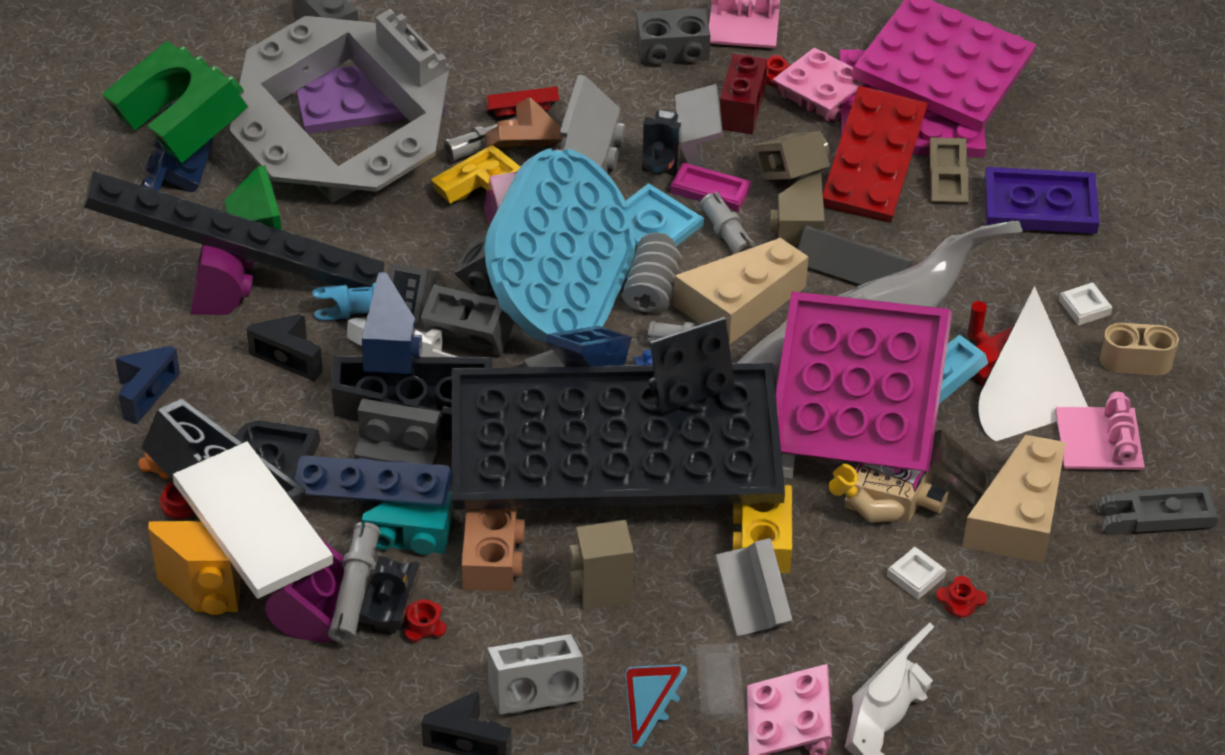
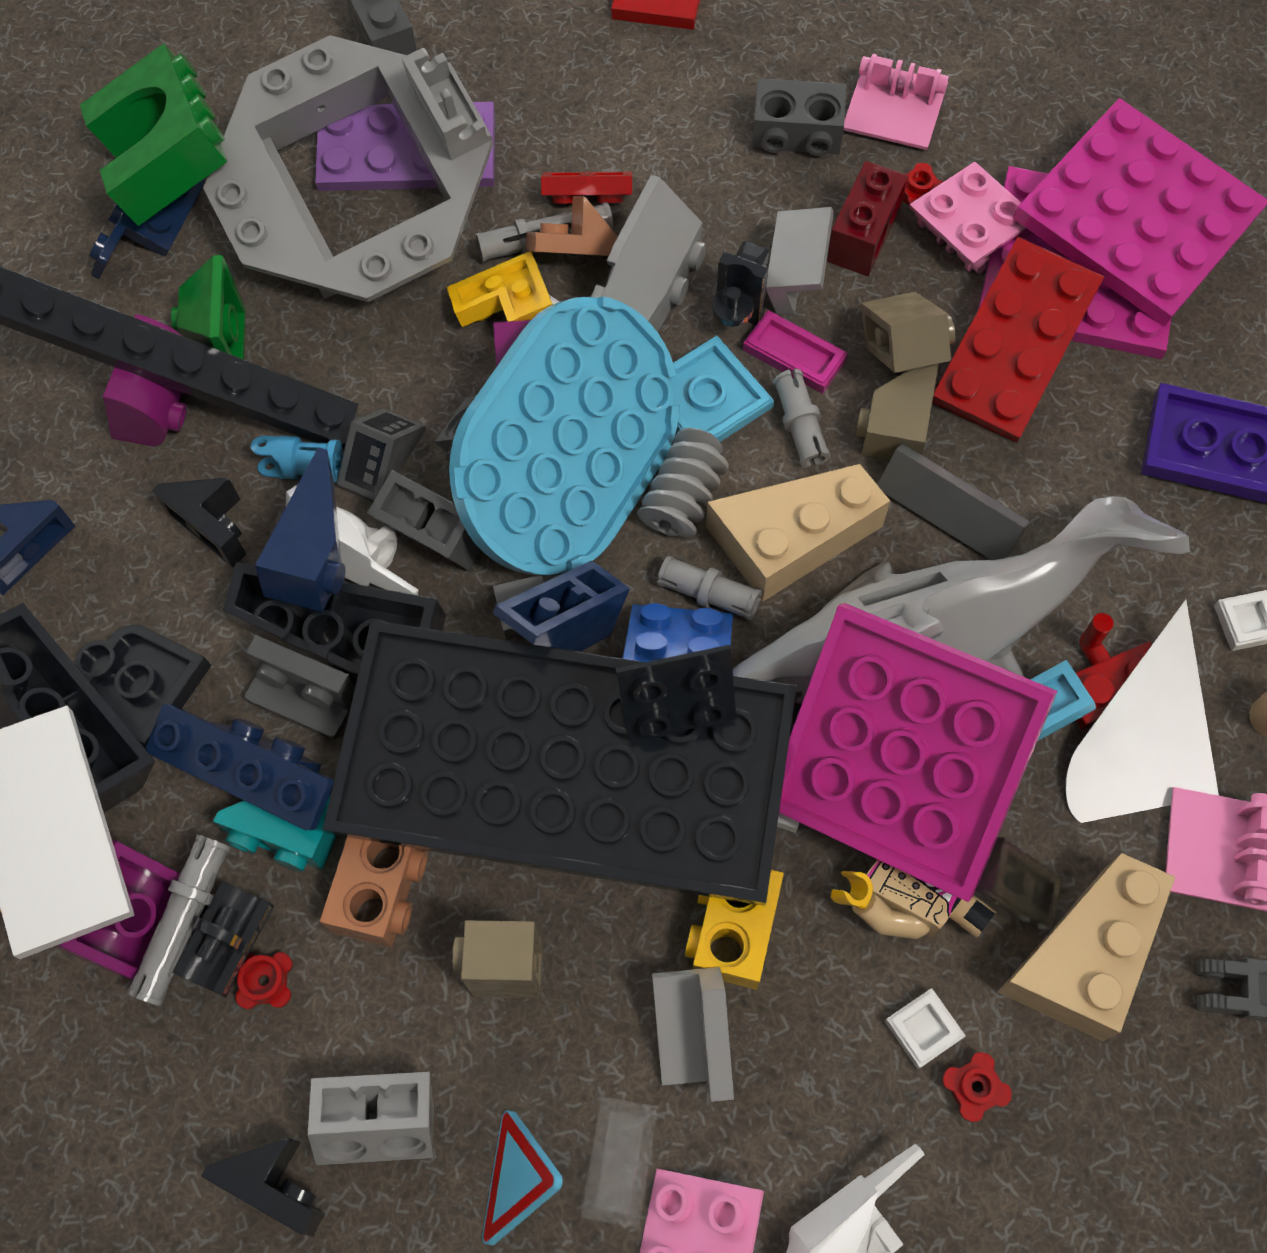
camera: 15 degrees right, 20 degrees up
(948, 170) = (1109, 378): dark tan slope -> none

